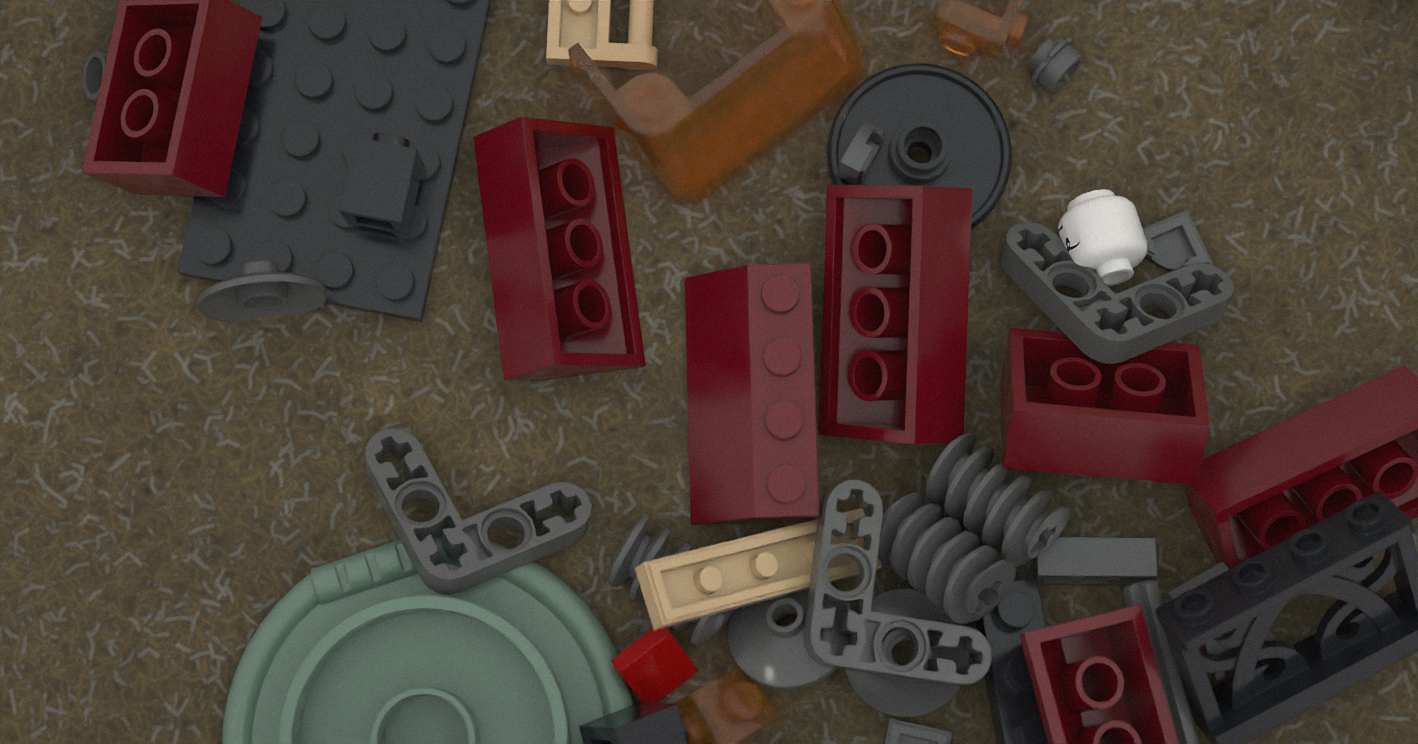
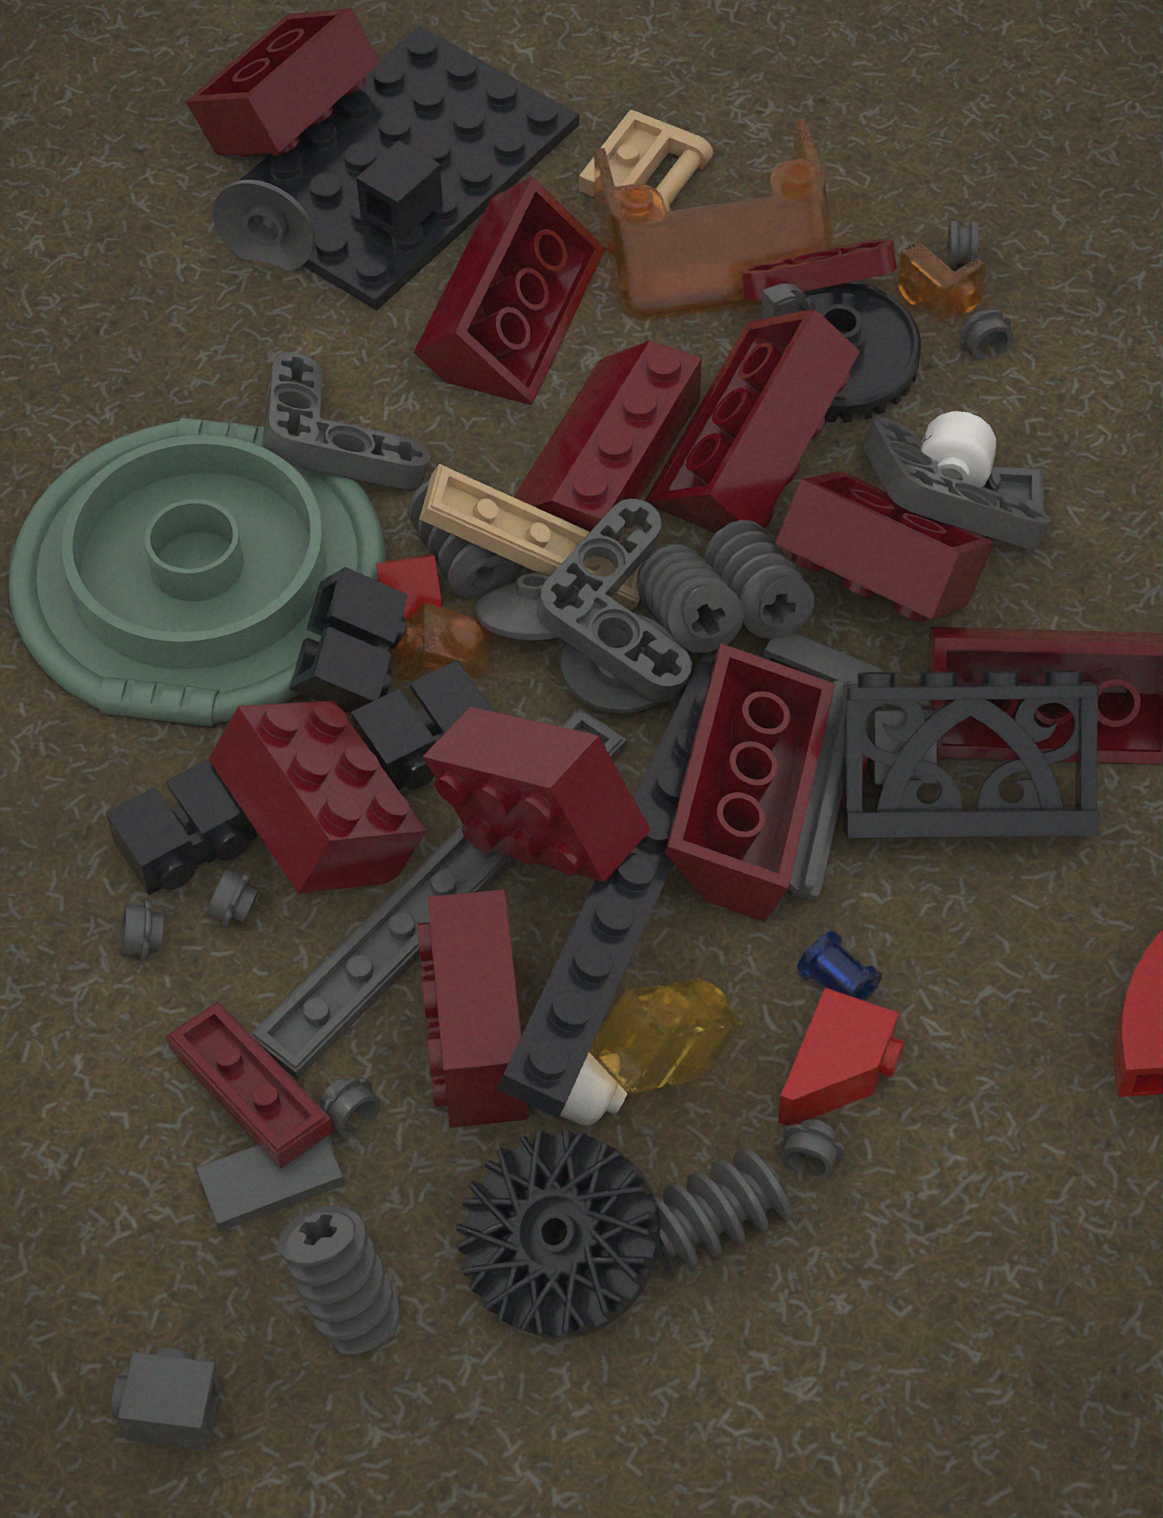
camera: 30 degrees right, 25 degrees down
(902, 38) = (821, 268): none -> dark red beam

